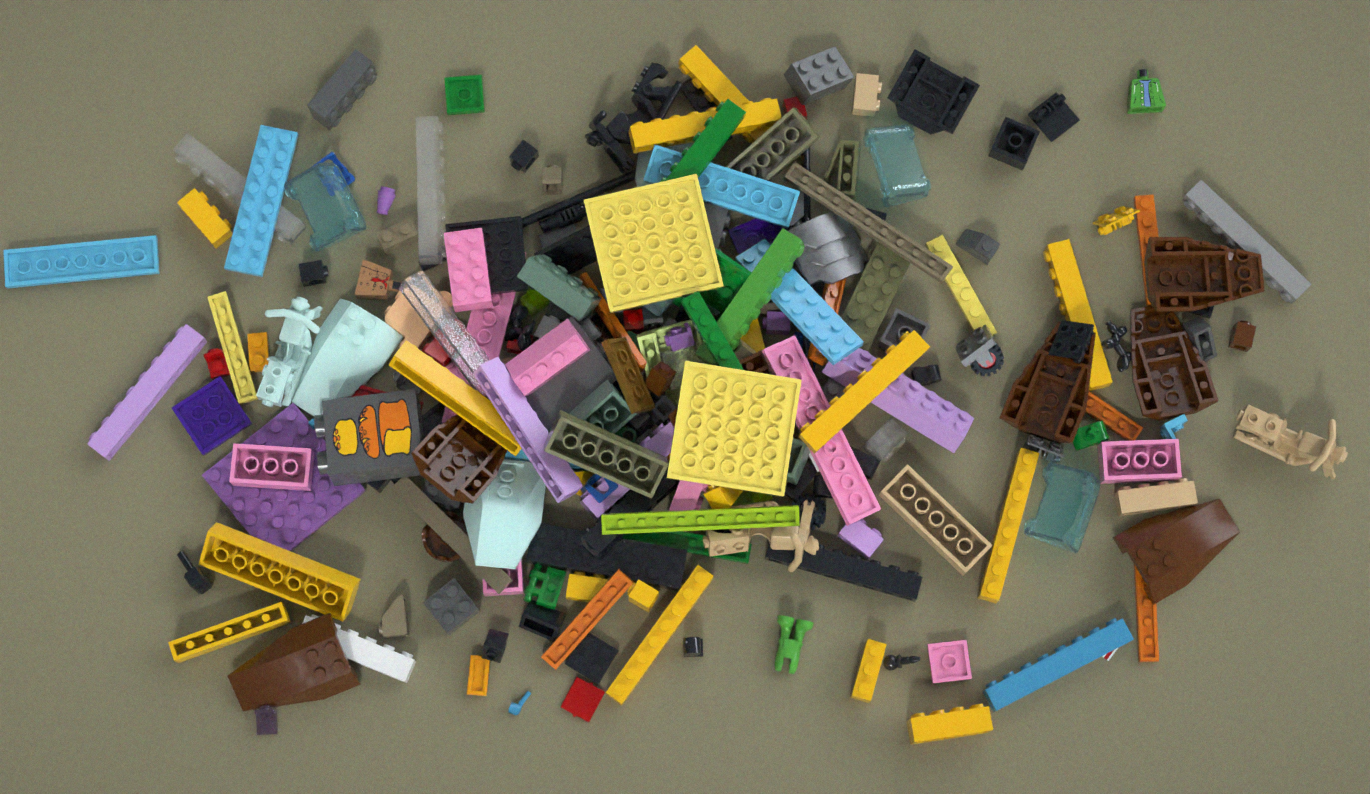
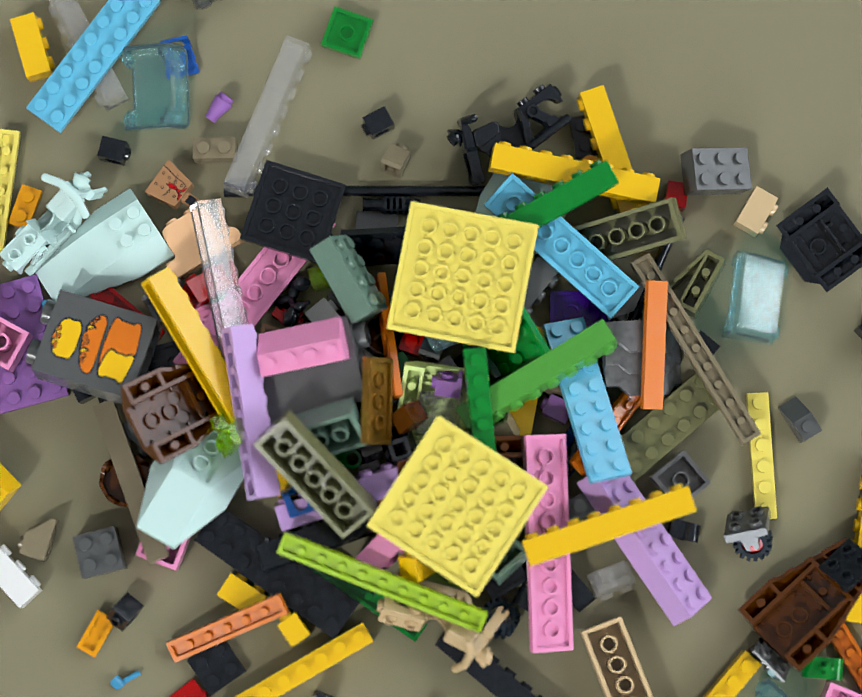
camera: 25 degrees right, 5 degrees up
(468, 270) = (266, 218): bright pink brick -> none
(518, 459) = (228, 435): none -> clear neon green hinge
(542, 620) = (184, 606): black brick -> none
(550, 589) = (206, 578): green plate -> none
(833, 233) = (653, 344): none -> orange tile
(861, 538) = (541, 669): lavender brick -> none

